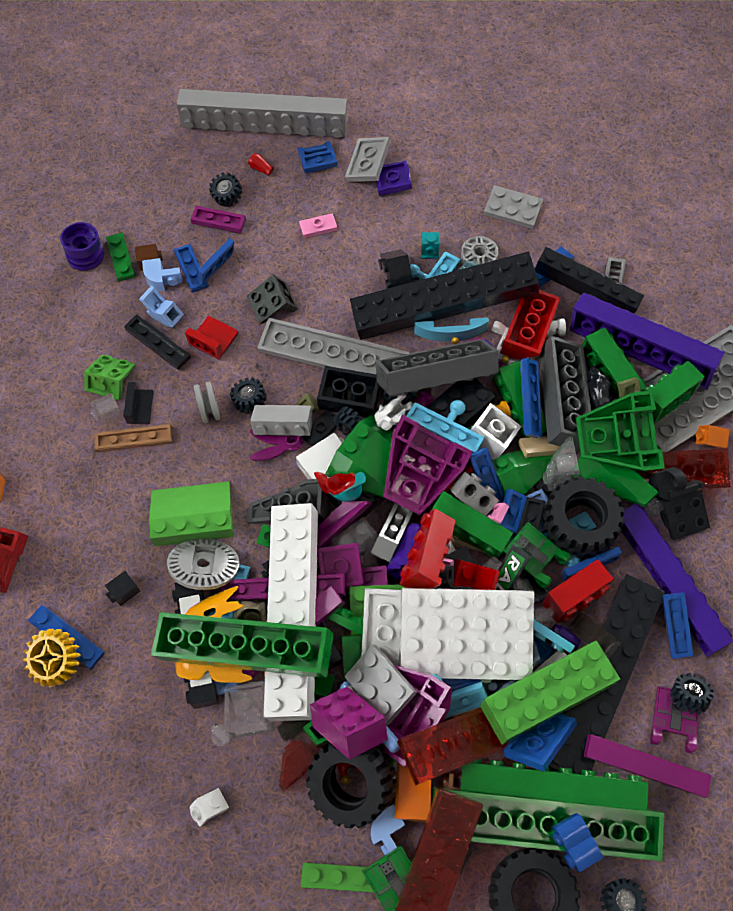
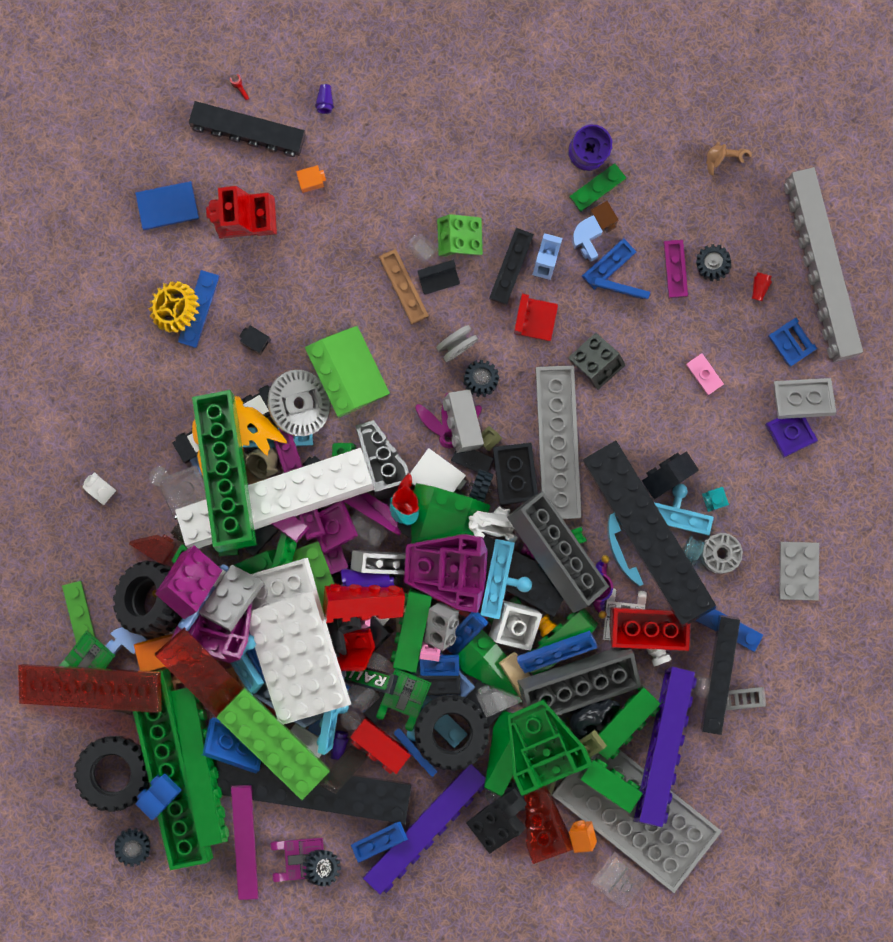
camera: 65 degrees right, 20 degrees up
(137, 158) = (718, 152): none -> medium nougat piece

